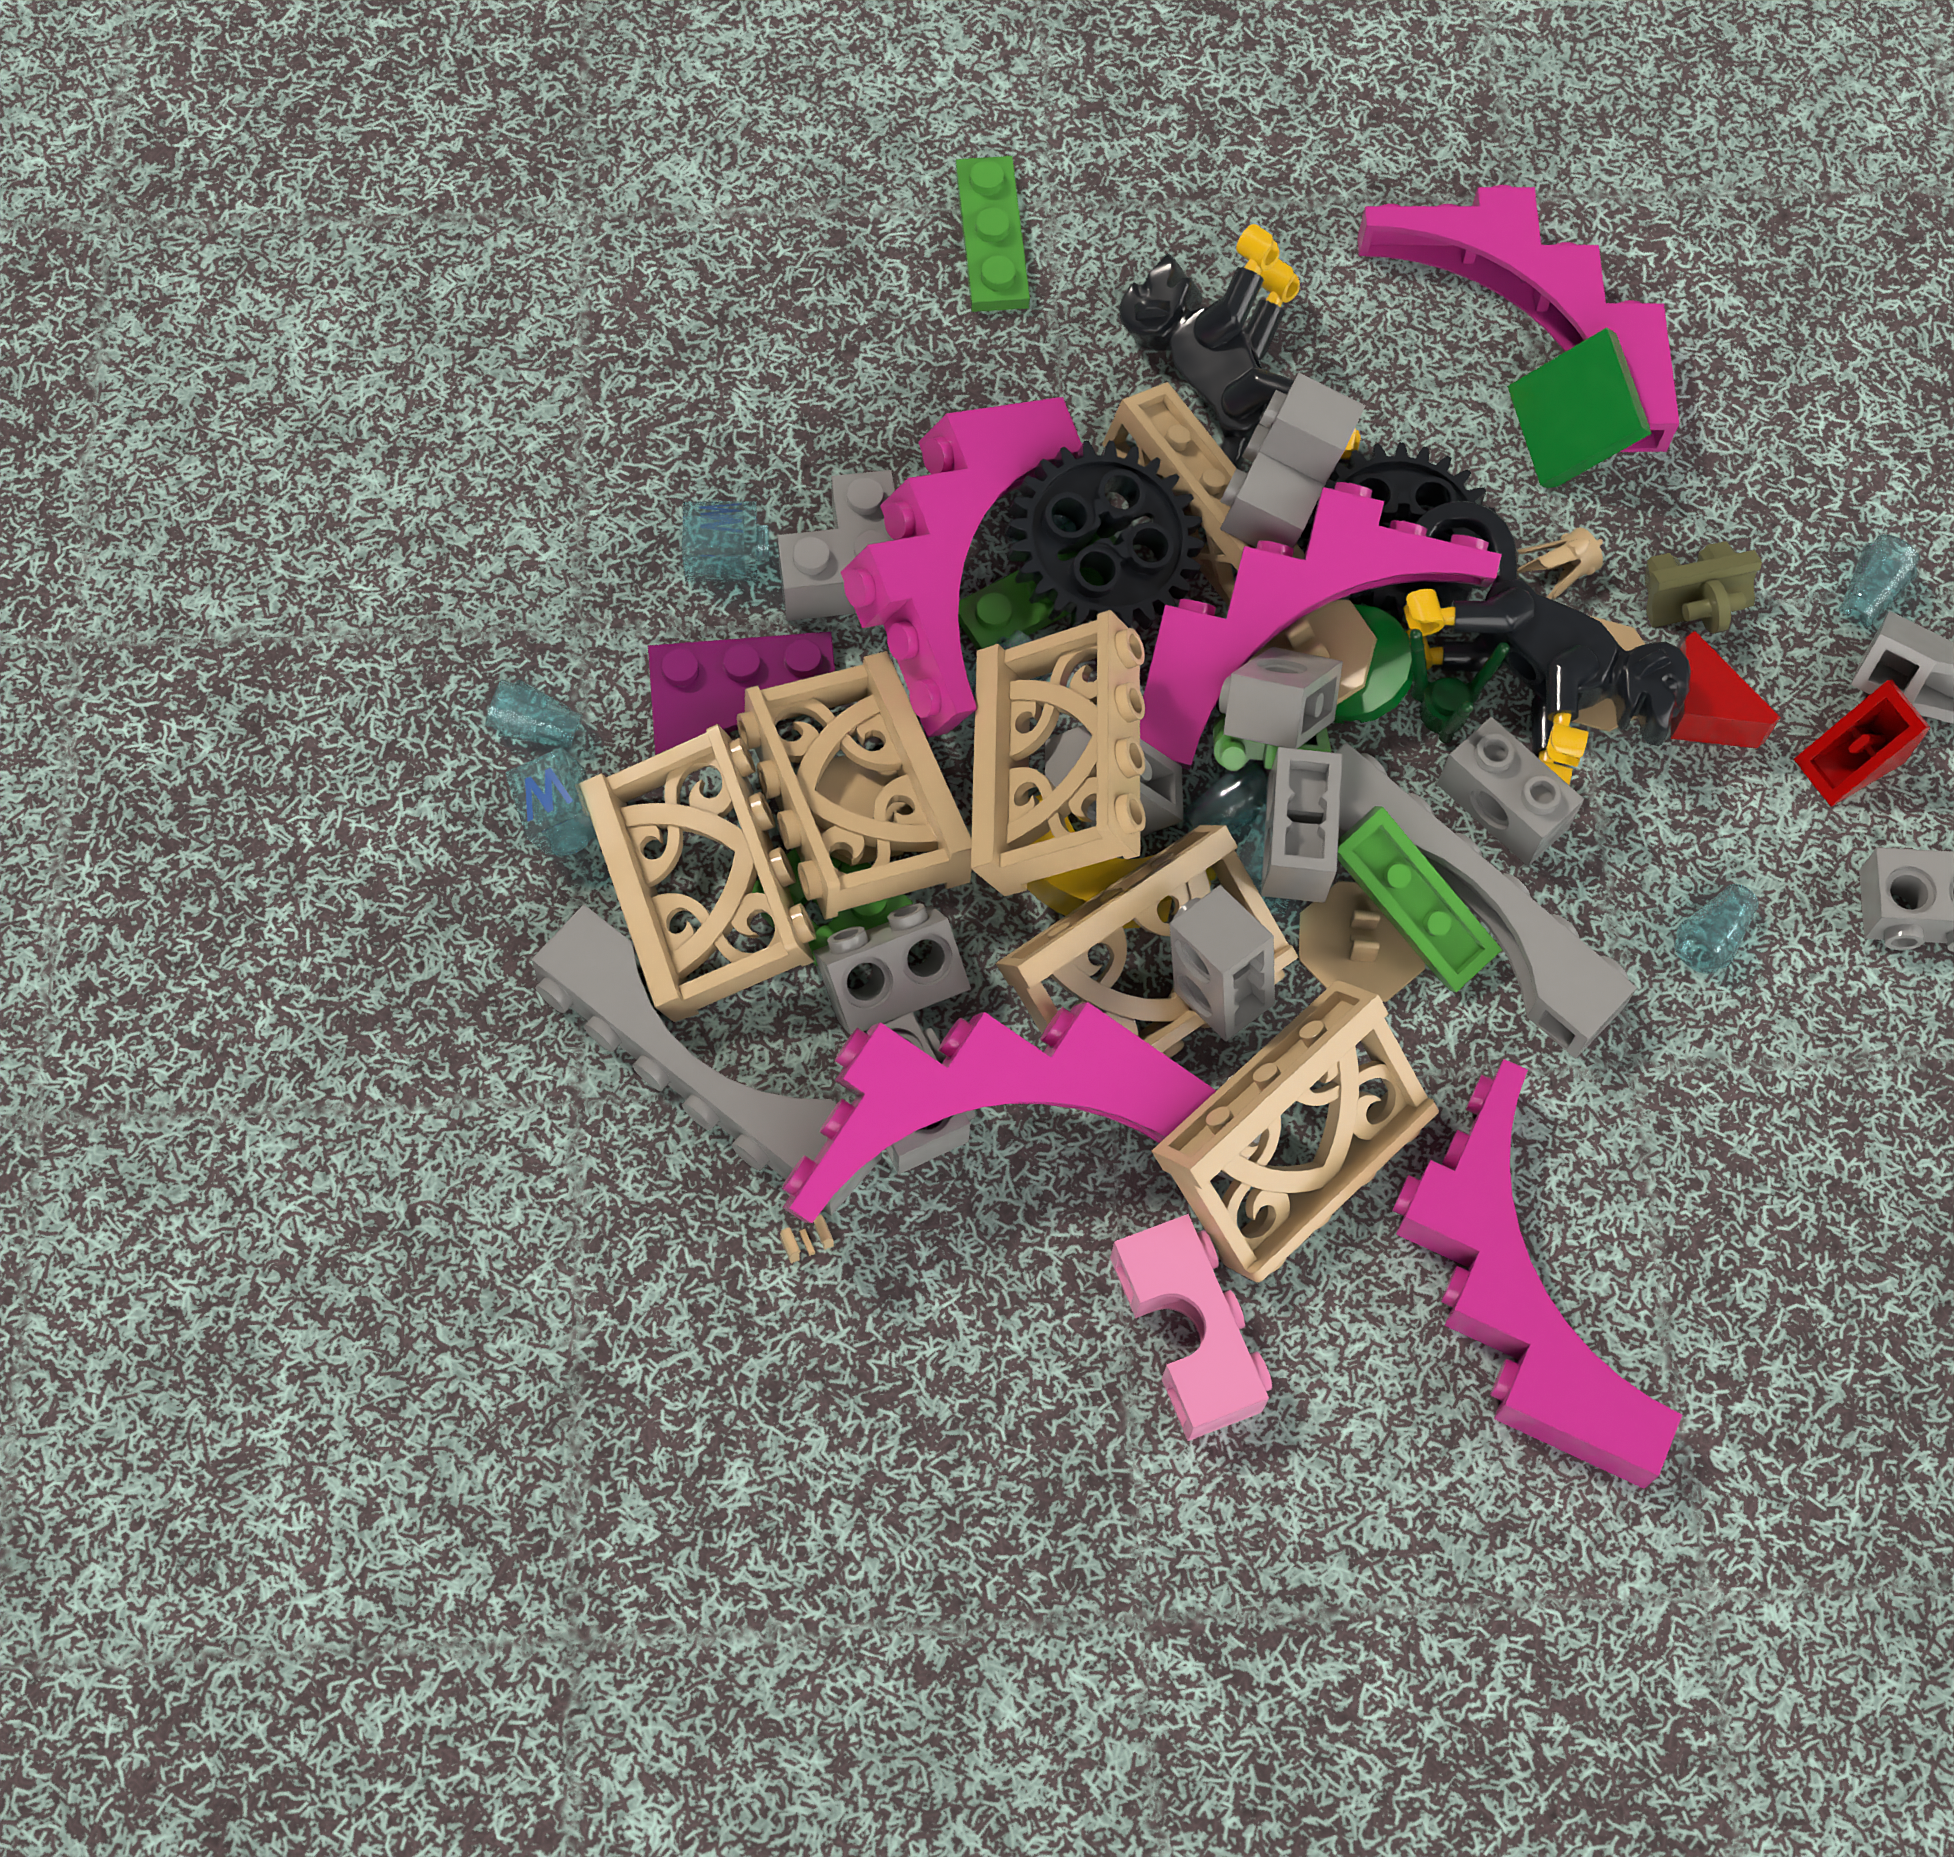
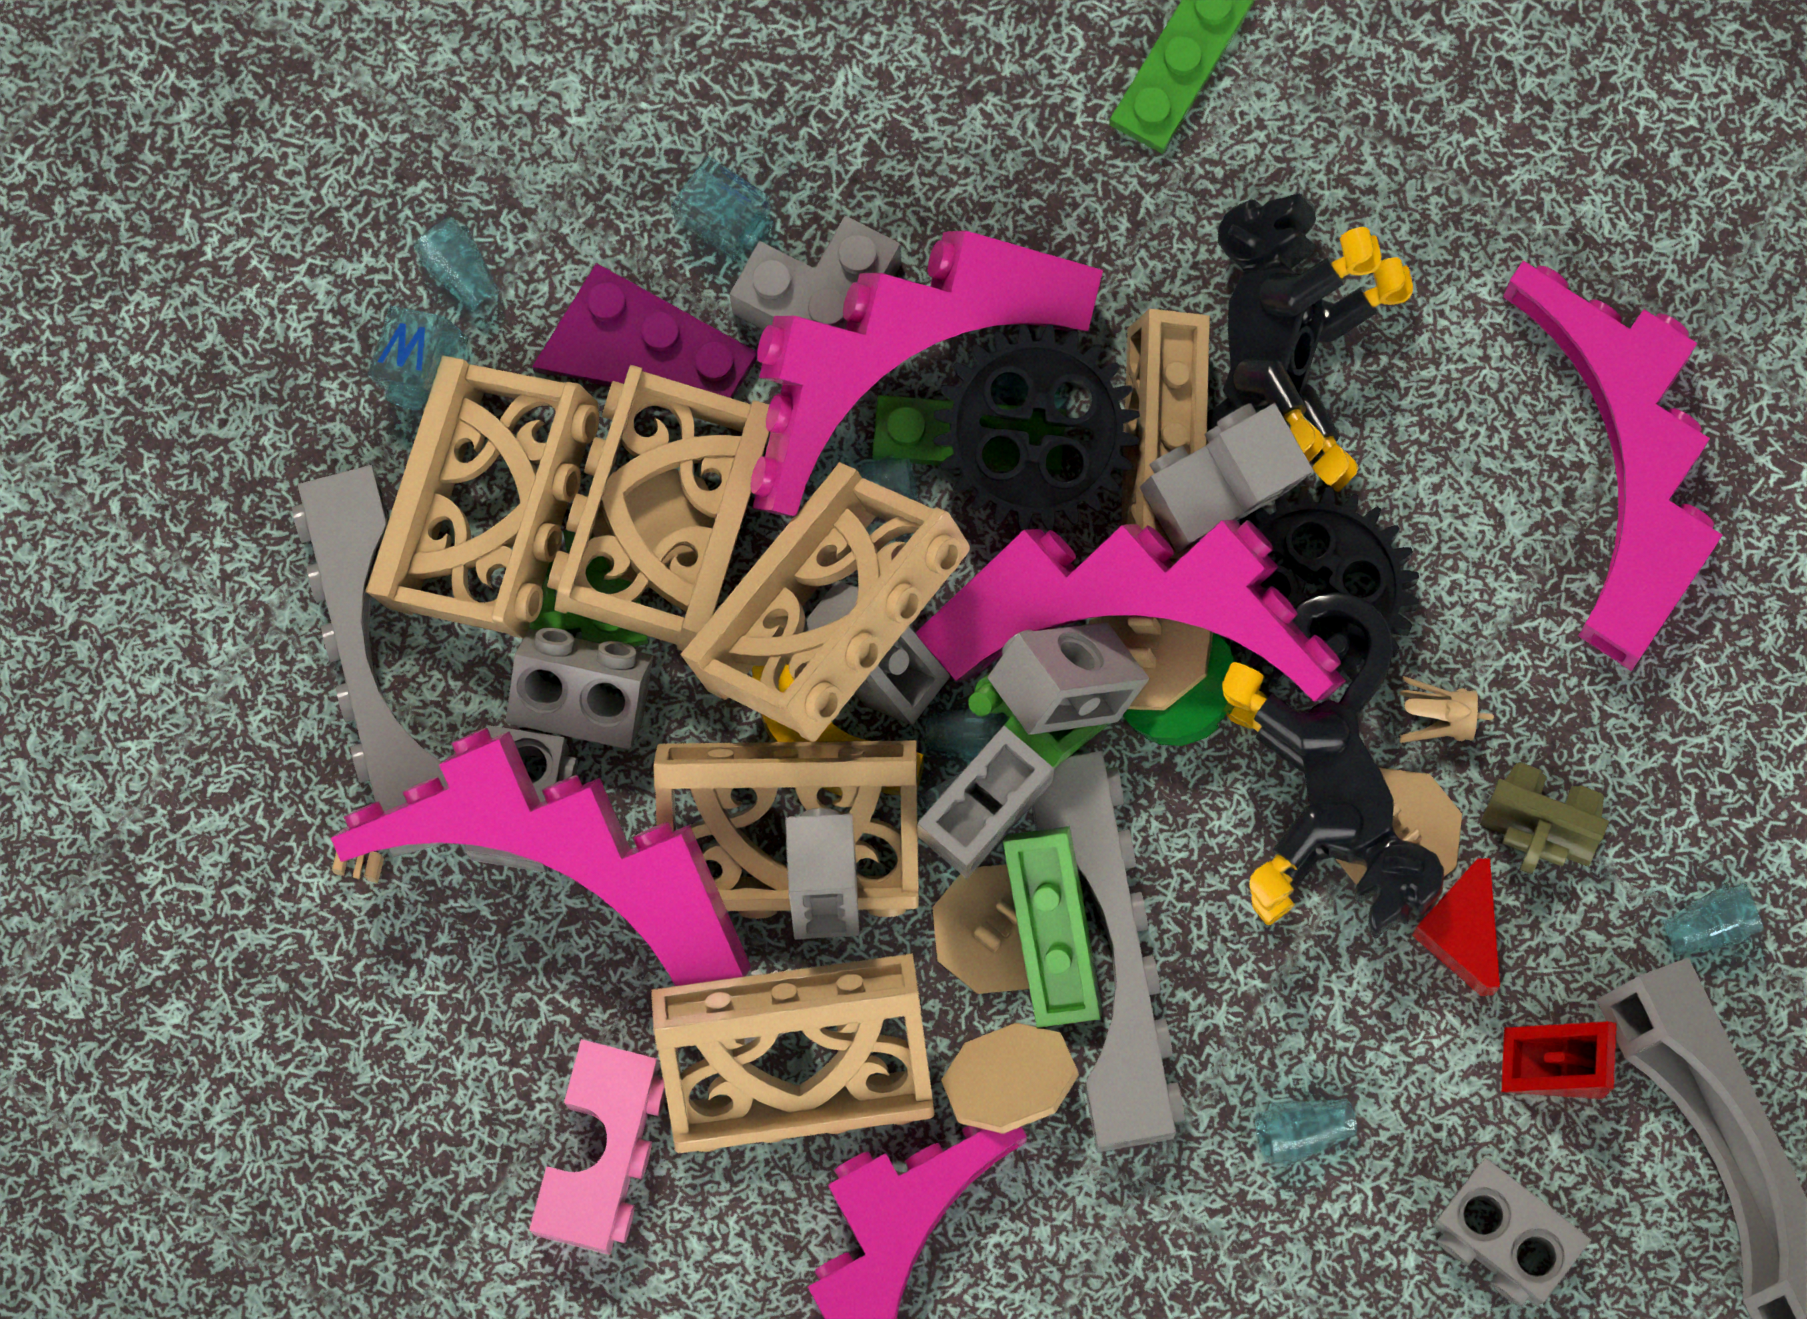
camera: 45 degrees right, 10 degrees up
(1448, 700) = (1233, 769): dark green plant -> none
(1473, 1039) = (1009, 1078): none -> tan piece
(1509, 791) = (1216, 887): light grey brick -> none
(1579, 409) = (1564, 583): green tile -> none

